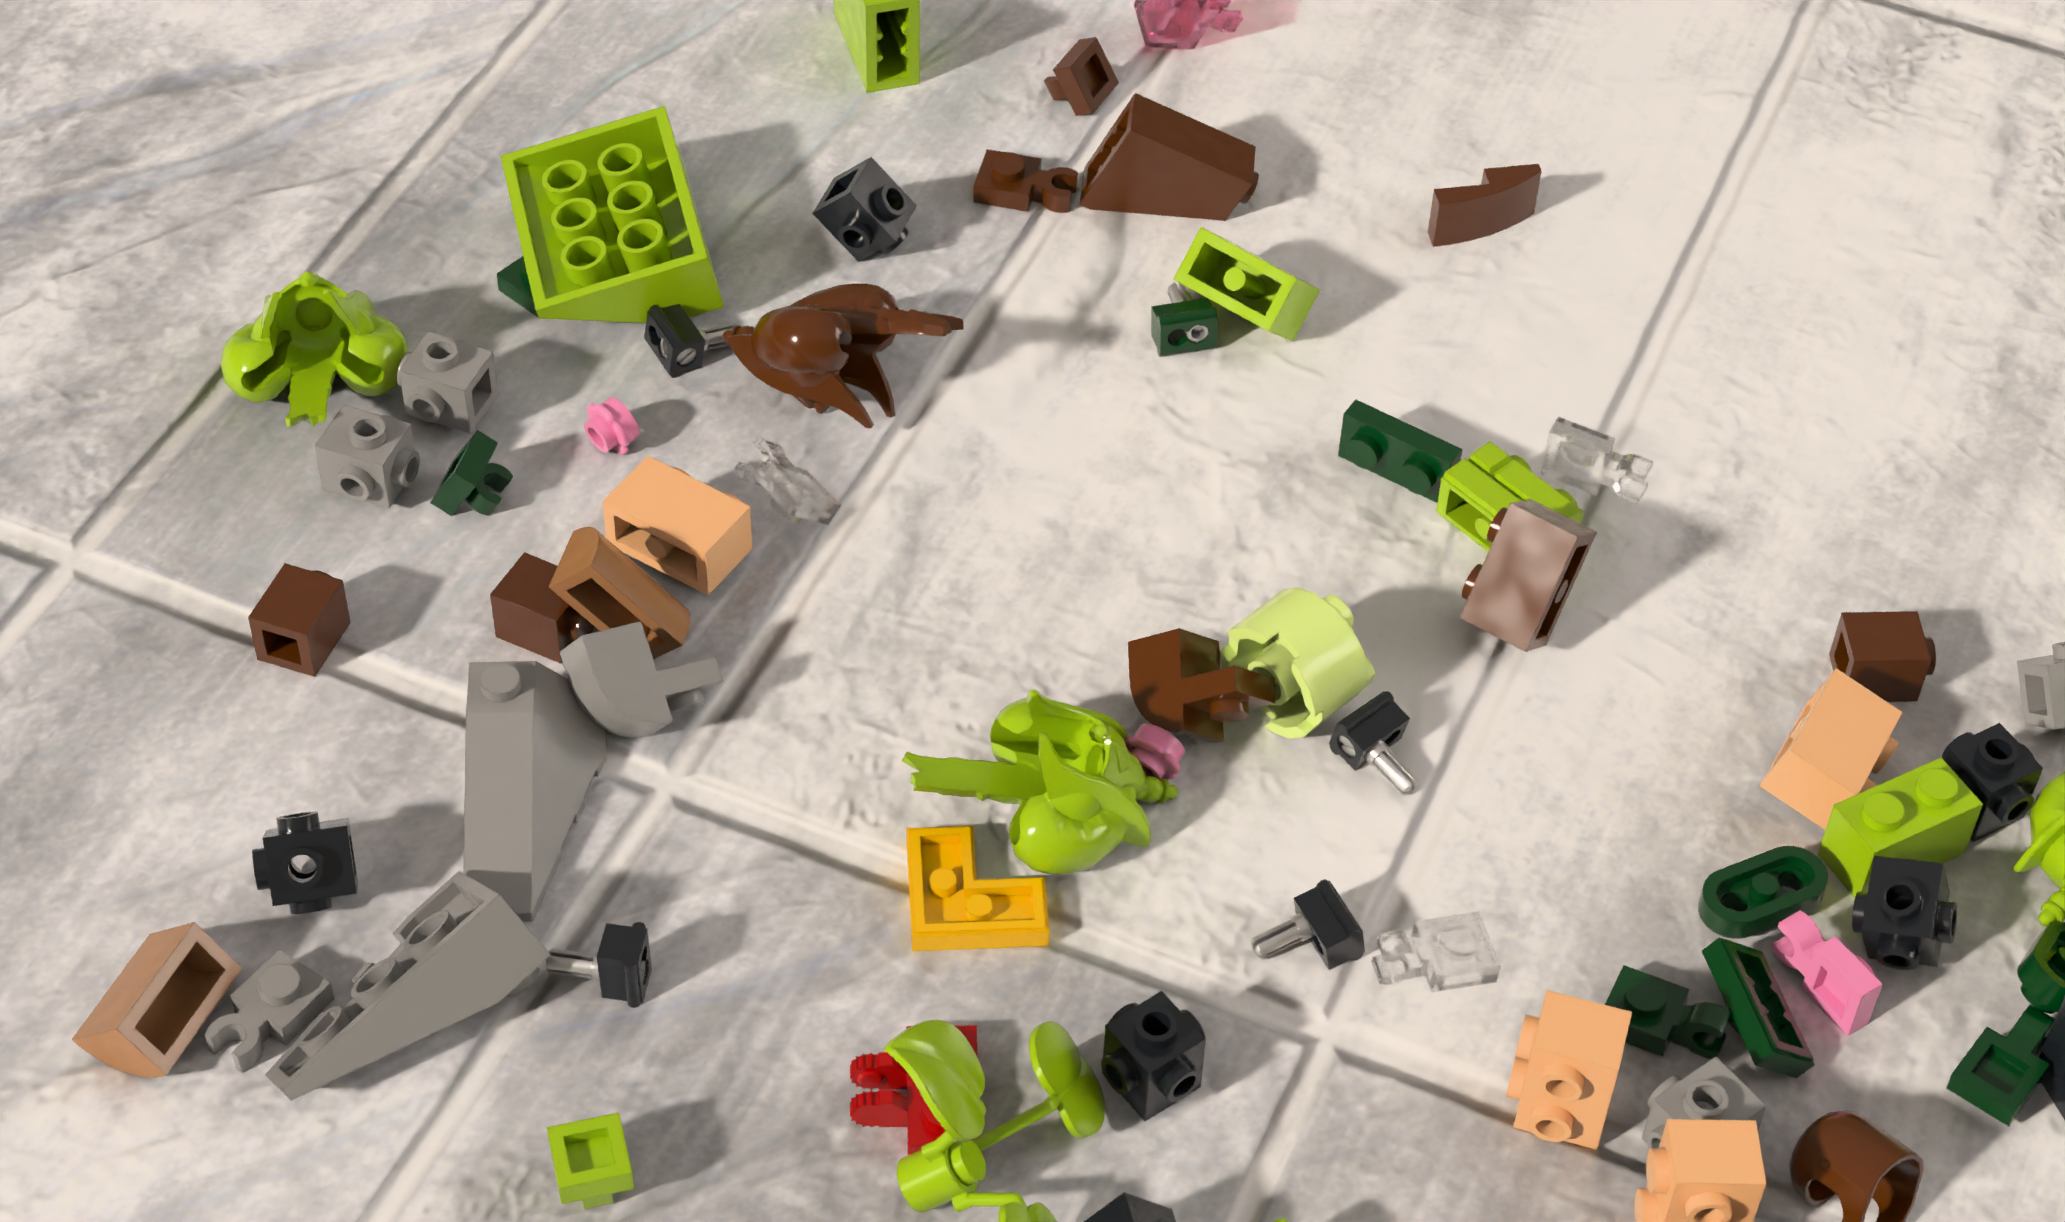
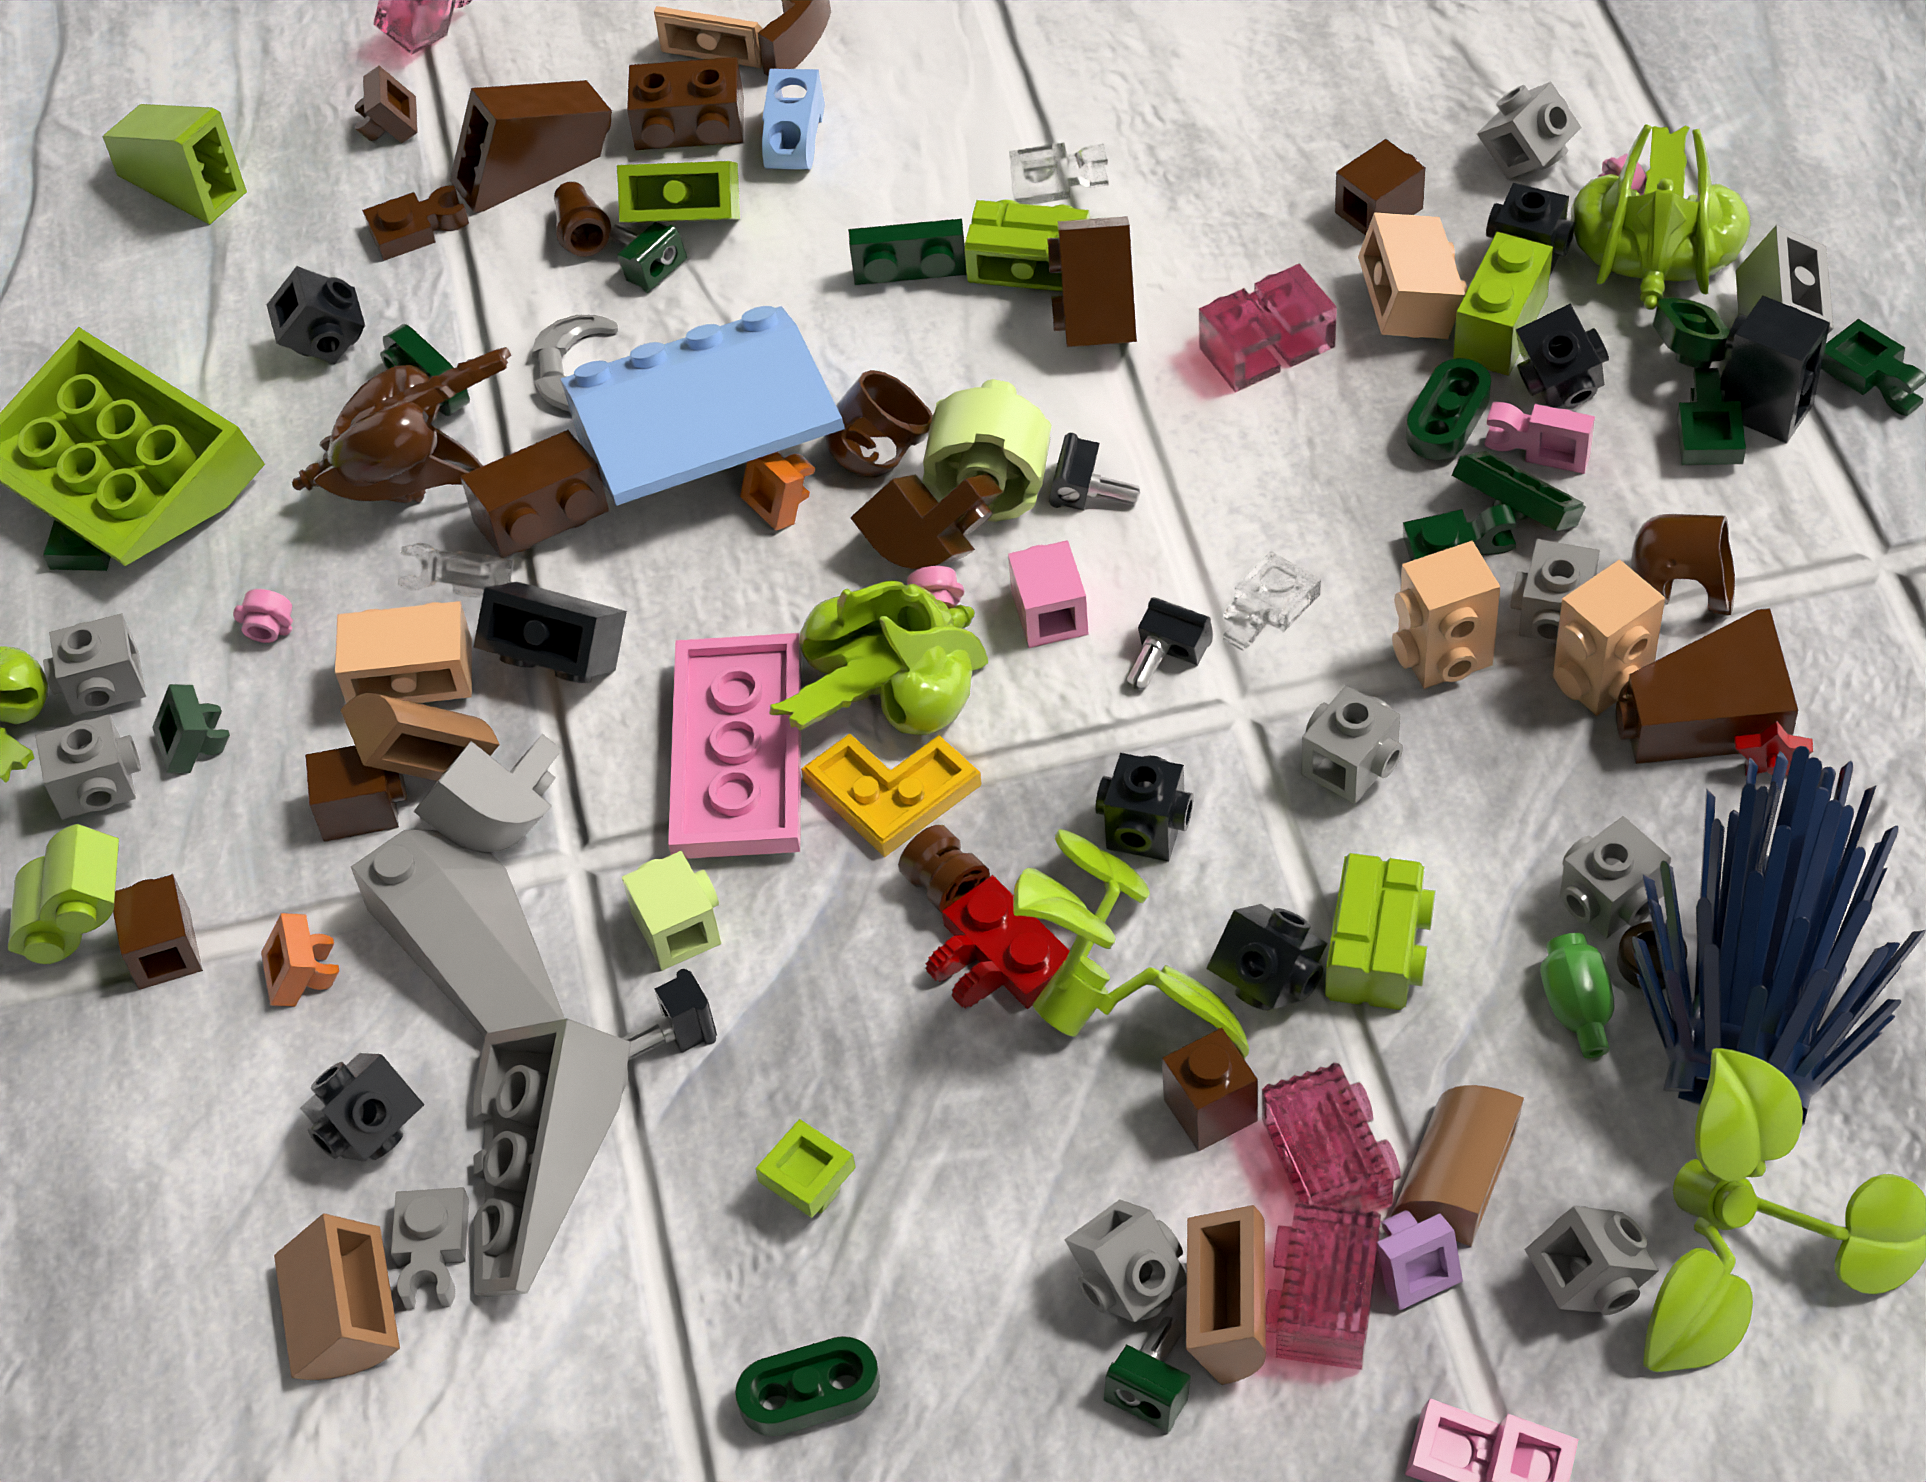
camera: 30 degrees left, 5 degrees up
(252, 543) = (63, 894): none -> lime brick
(375, 712) = (291, 960): none -> orange tile
(678, 340) = (252, 514): black piece -> none
(693, 872) = (673, 908): none -> yellowish green brick
(806, 578) = (549, 630): none -> black brick
(850, 791) = (730, 759): none -> bright pink plate
(899, 460) = (535, 493): none -> reddish brown brick
(909, 290) = (407, 347): none -> dark green plate
(938, 985) = (939, 865): none -> reddish brown wheel
(1010, 387) = (554, 343): none -> light grey piece
(1093, 468) = (699, 403): none -> light blue slope
(1106, 579) = (776, 487): none -> orange tile
(1150, 262) = (579, 221): none -> reddish brown cone
(1241, 567) = (877, 408): none -> reddish brown helmet
(1245, 818) = (1048, 593): none -> bright pink brick
(1328, 216) = (685, 103): none -> reddish brown brick
(1384, 1125) = (1351, 743): none -> light grey brick
(1397, 170) = (708, 36): none -> light nougat slope
(1402, 282) = (791, 122): none -> light blue leg
(1691, 718) = (1281, 312): none -> clear pink piece

